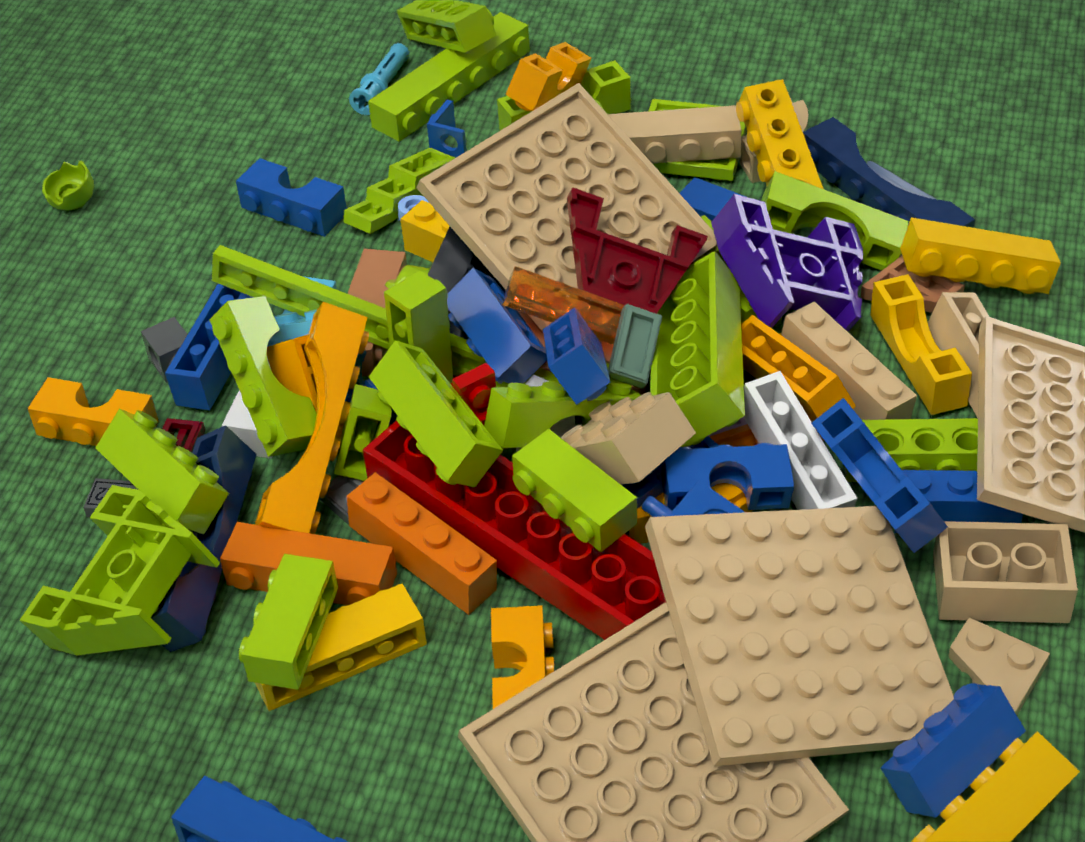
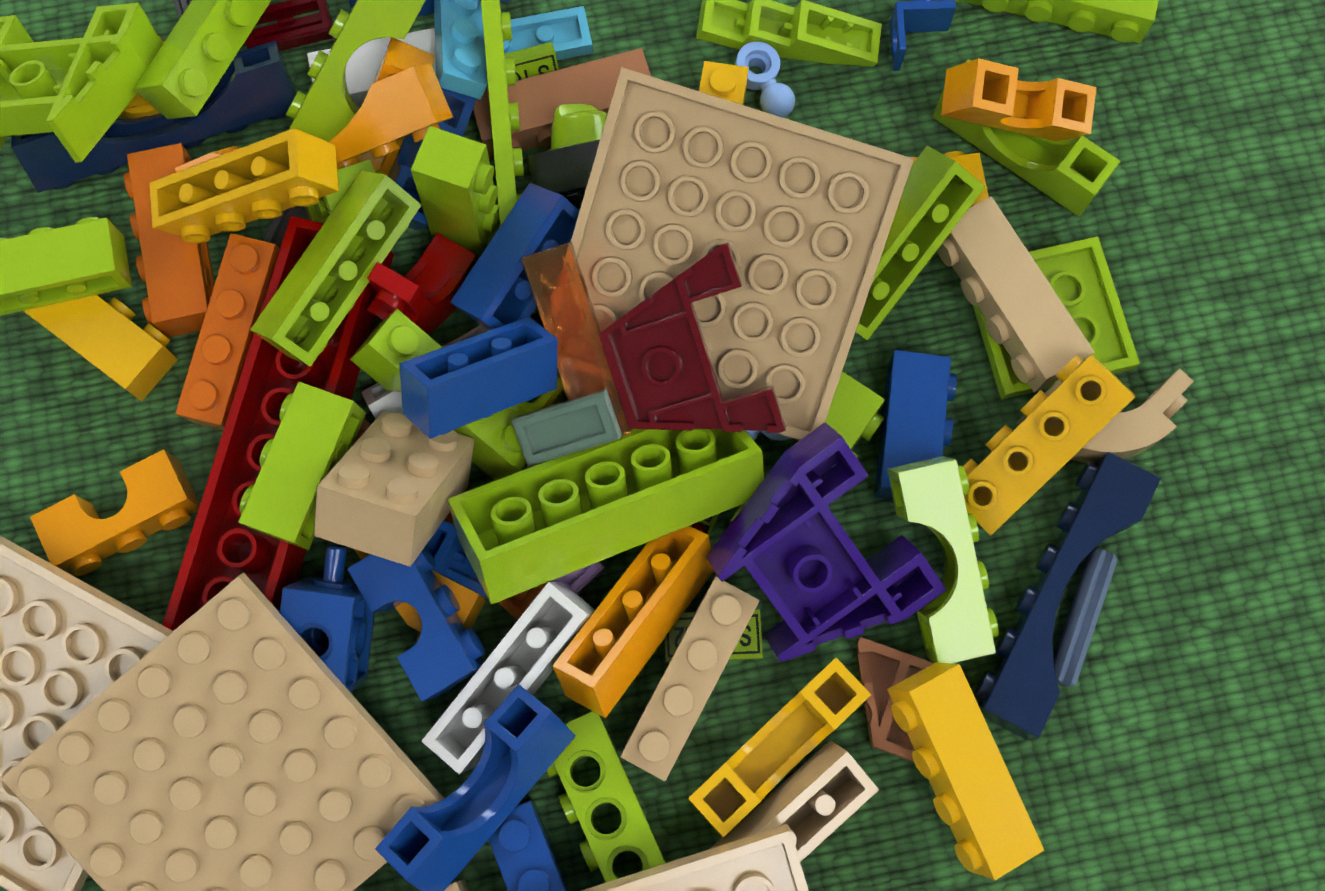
camera: 60 degrees right, 30 degrees up
(330, 448) = (244, 186): none -> yellow brick

